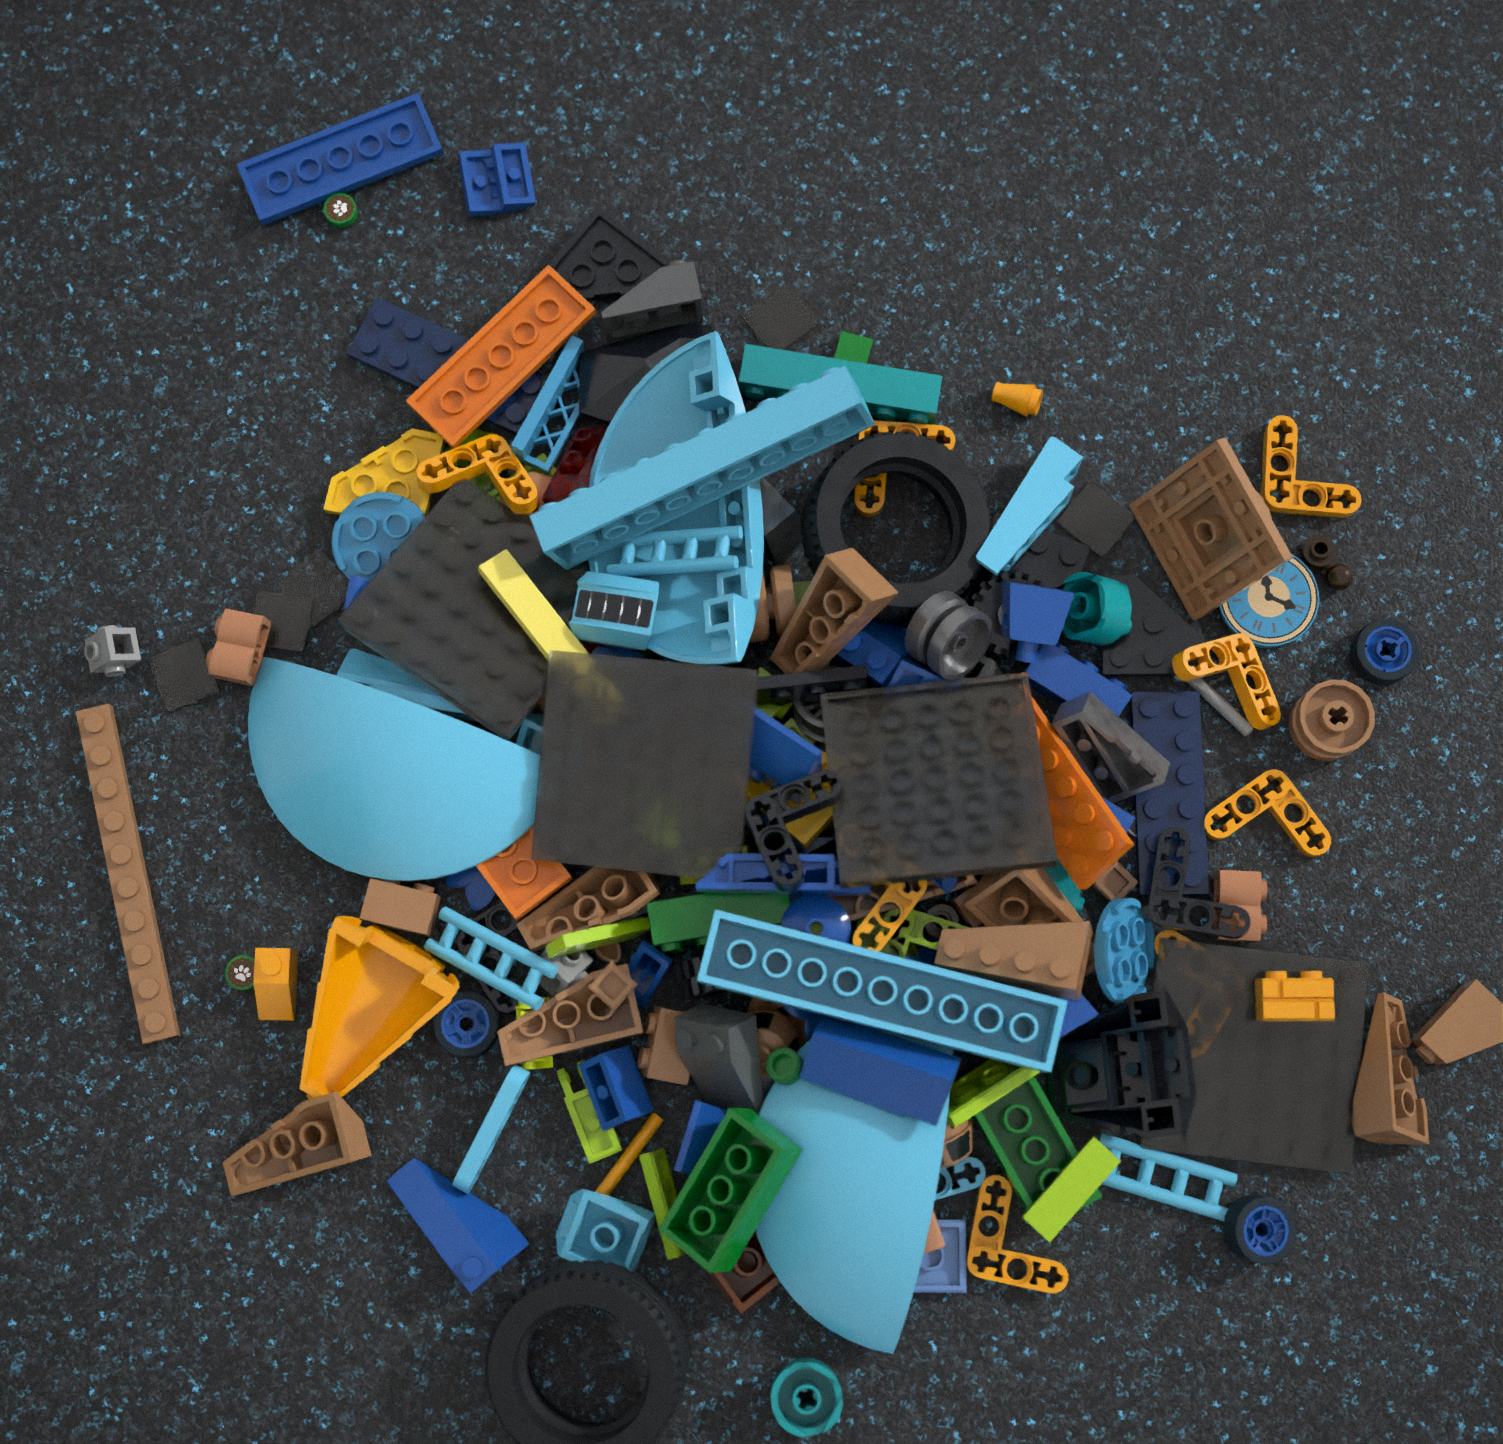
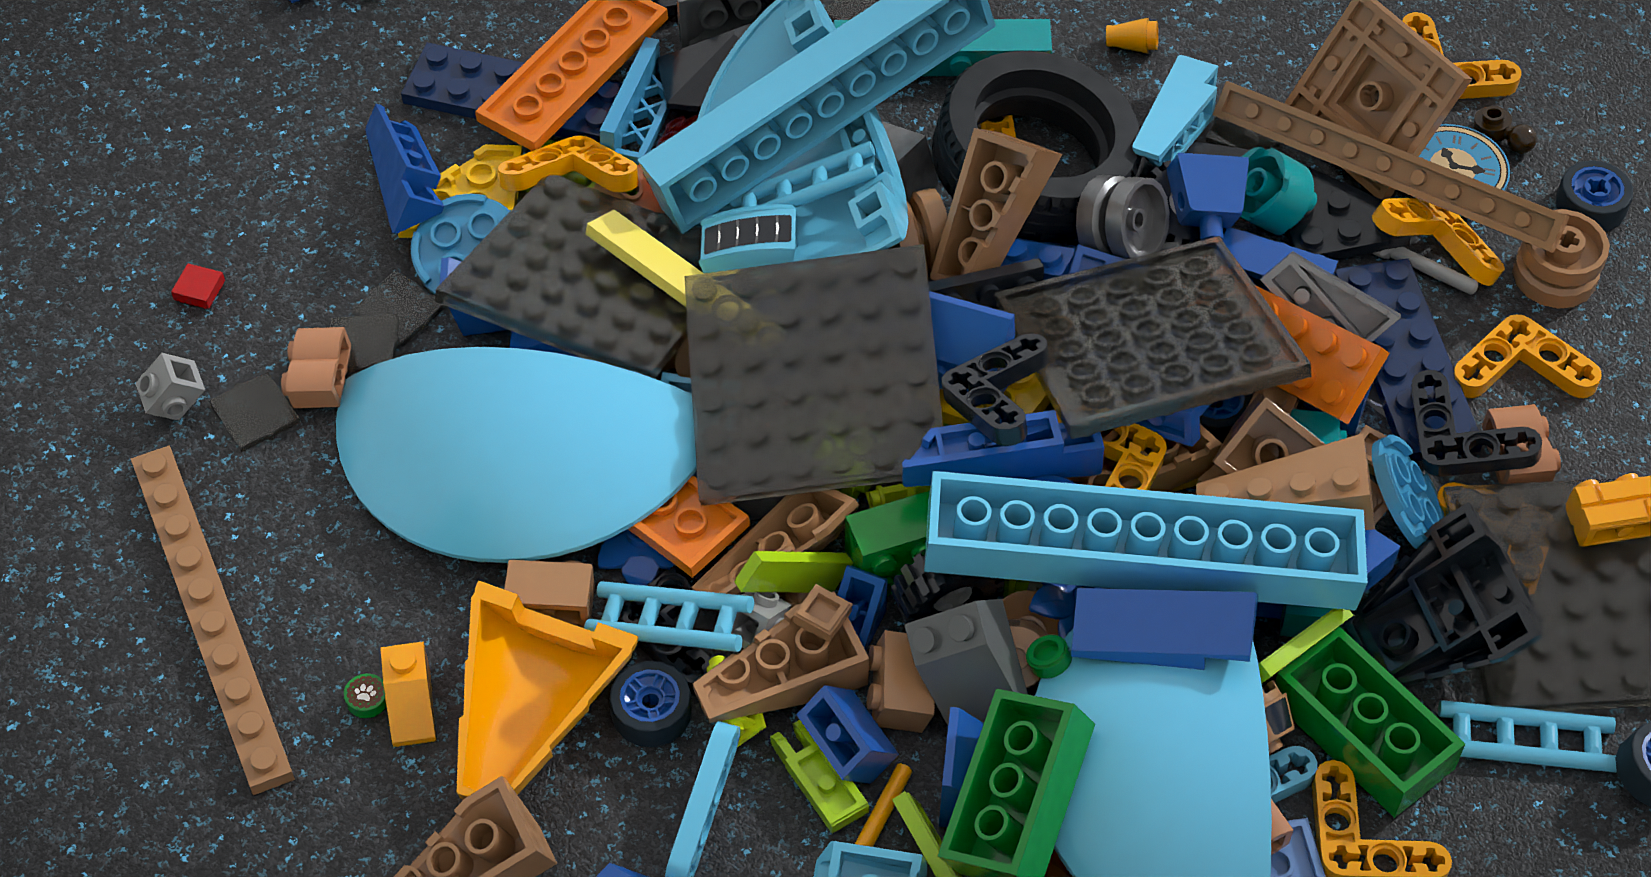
camera: 10 degrees left, 25 degrees down
(148, 536) = (198, 286): none -> red tile
(336, 448) = (403, 171): none -> blue wedge
(1071, 1189) = (1425, 737): lime tile -> none
(1204, 605) = (1392, 167): none -> medium nougat plate

